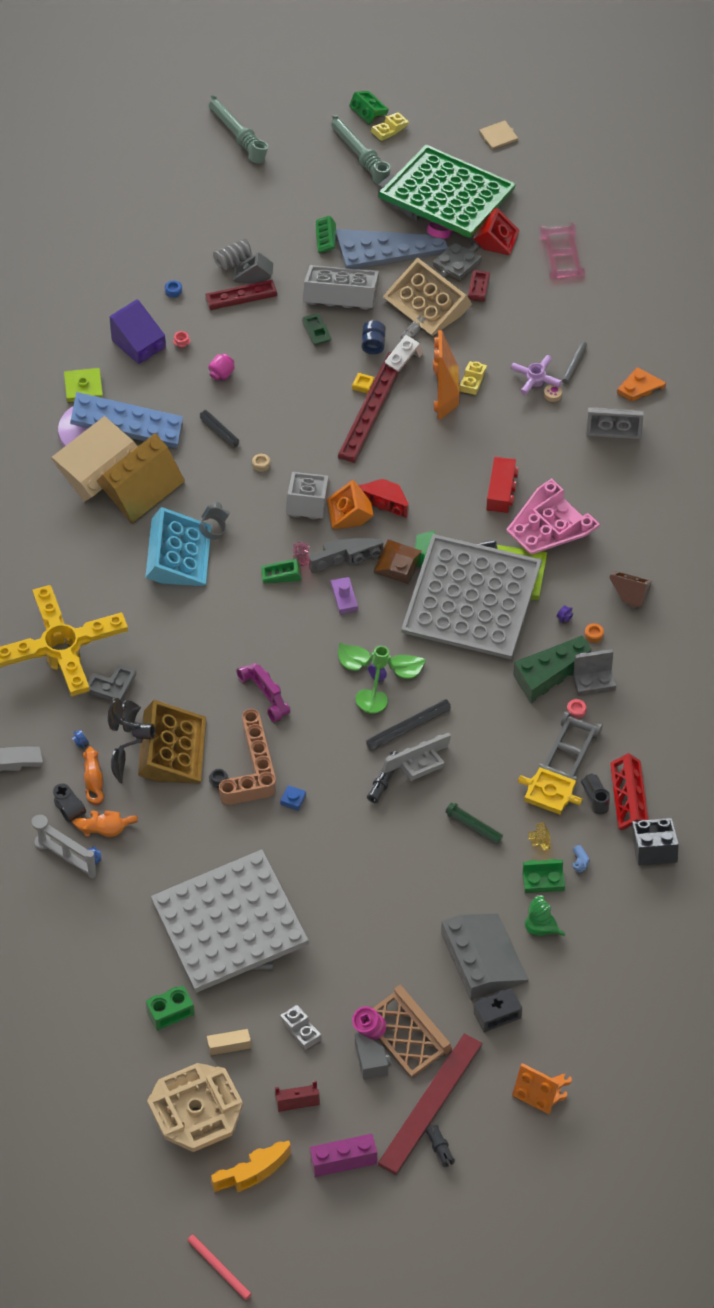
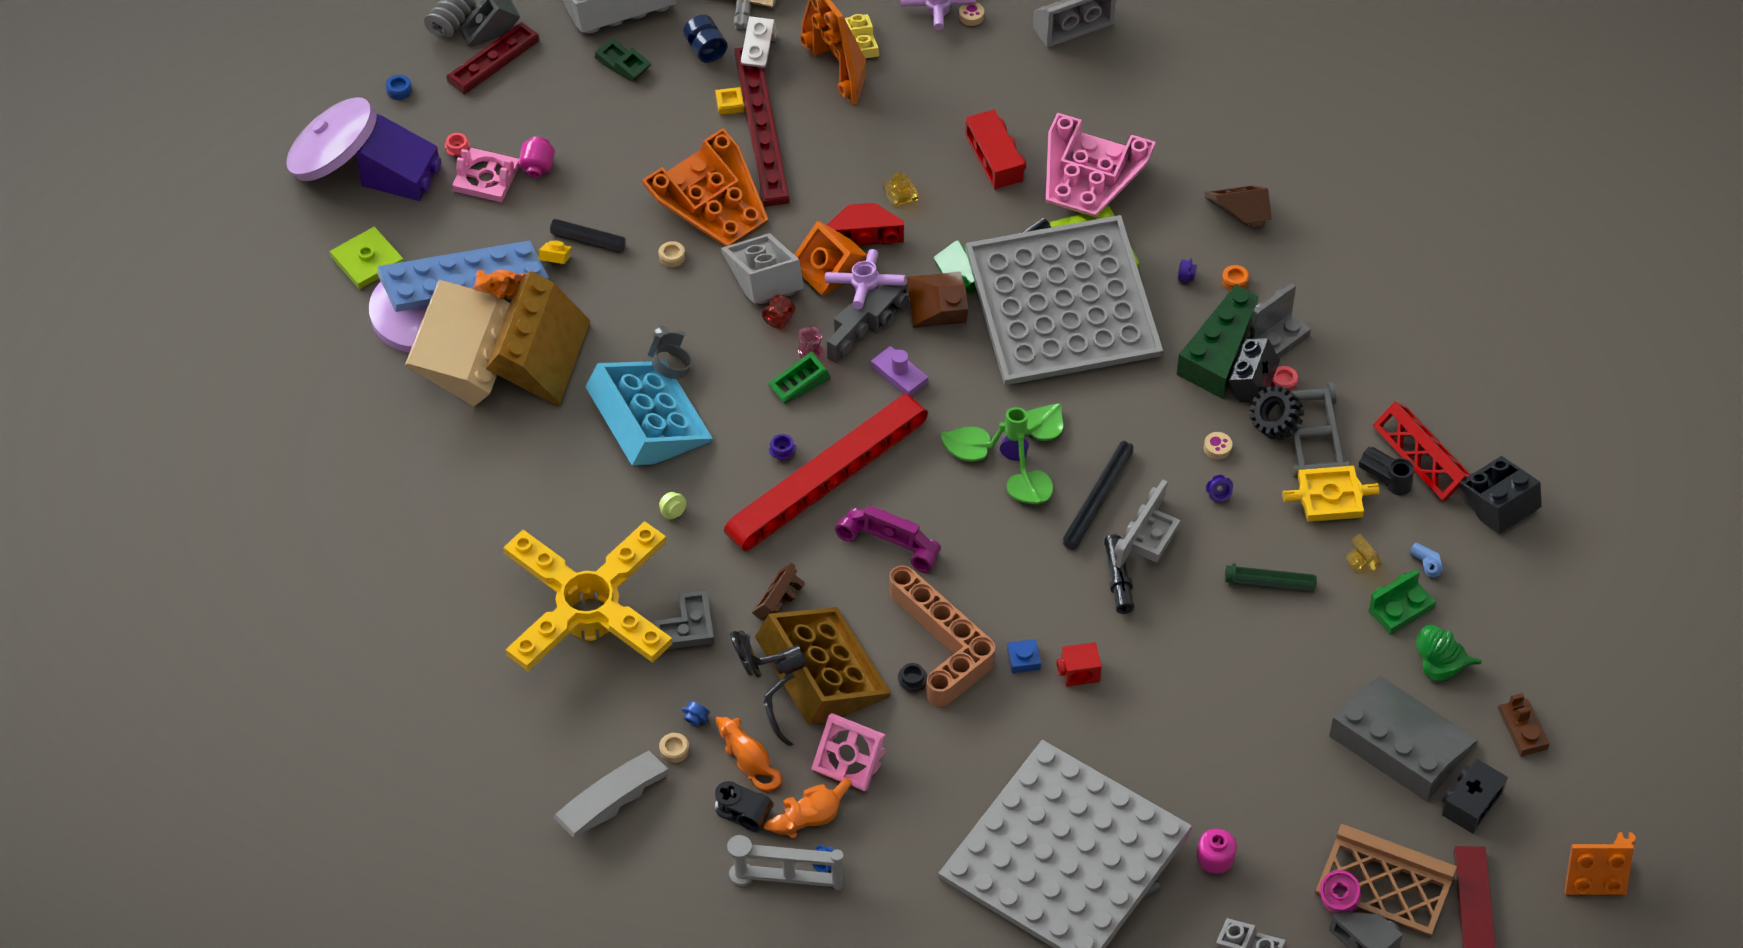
camera: 30 degrees left, 0 degrees up
(55, 752) = (674, 748): none -> tan tile
(105, 303) = (331, 139): none -> lavender dish
(137, 433) = (498, 283): none -> orange animal
(147, 783) = (875, 742): none -> bright pink piece
(152, 612) = (672, 505): none -> yellowish green plate
(168, 695) = (779, 588): none -> reddish brown plate
(191, 430) = (555, 252): none -> yellow plate
(194, 371) = (495, 193): none -> bright pink piece
(241, 607) = (782, 441): none -> dark purple plate
(255, 634) = (825, 472): none -> red beam
(296, 525) = (778, 311): none -> clear red wheel
(308, 434) = (711, 190): none -> orange wedge
(317, 963) = (1216, 851): none -> dark pink head
(320, 818) = (1079, 664): none -> red brick
(358, 528) = (865, 278): none -> lavender bar
(426, 484) = (900, 189): none -> clear yellow tile
(479, 757) = (1219, 495): none -> dark purple plate
(504, 729) = (1217, 445): none -> tan tile
(544, 720) = (1286, 422): none -> black tyre
(557, 693) = (1253, 369): none -> black brick
(563, 985) = (1523, 725): none -> reddish brown plate

